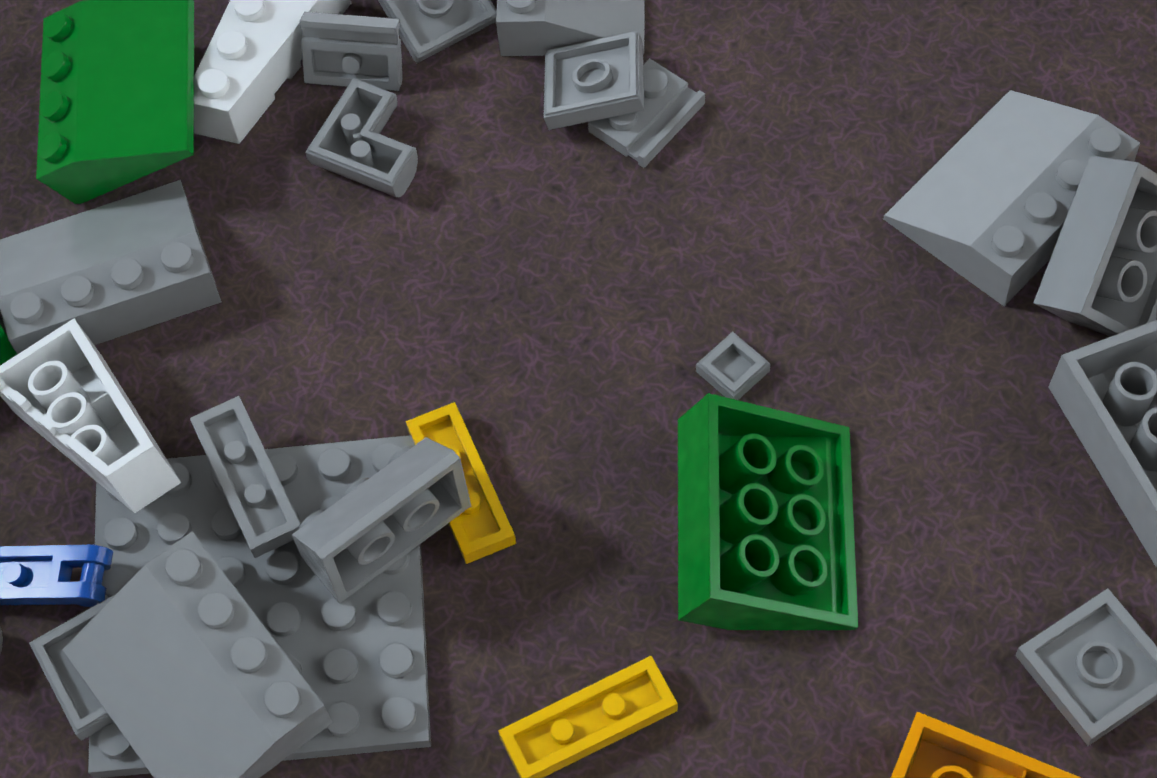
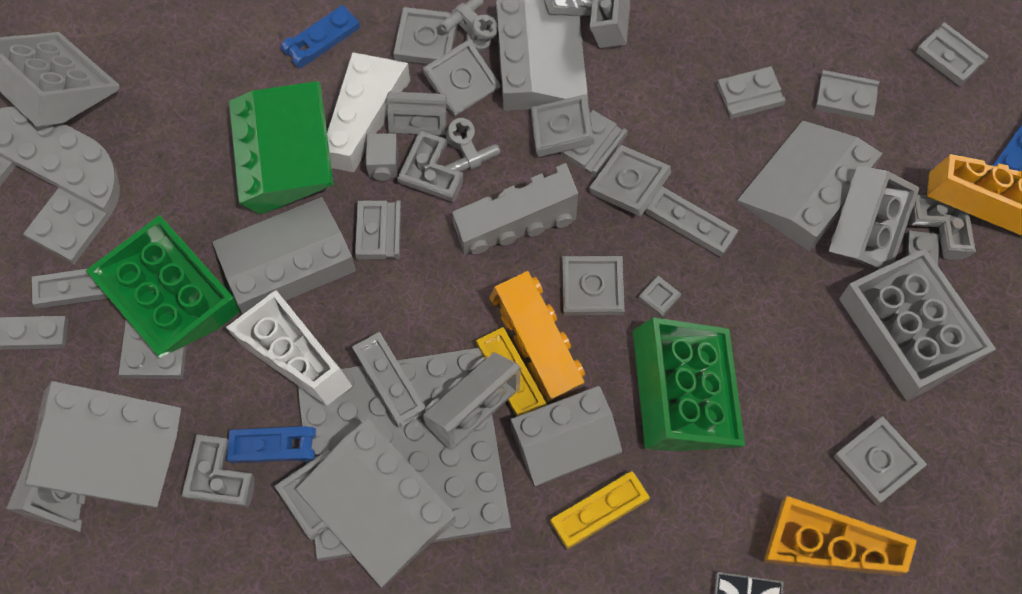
camera: 10 degrees left, 5 degrees up
(265, 235) = (378, 230): none -> light grey plate
(286, 117) = (382, 156): none -> light grey brick
(436, 128) = (471, 157): none -> light grey piece
(501, 215) = (518, 212): none -> light grey wedge
(511, 418) = (538, 335): none -> light orange wedge
(543, 590) = (566, 436): none -> light grey slope
(619, 344) = (593, 285): none -> light grey tile
(700, 173) = (630, 180): none -> light grey plate
(800, 246) = (691, 221): none -> light grey plate
(924, 41) = (751, 92): none -> light grey plate
(1091, 52) = (847, 95): none -> light grey plate

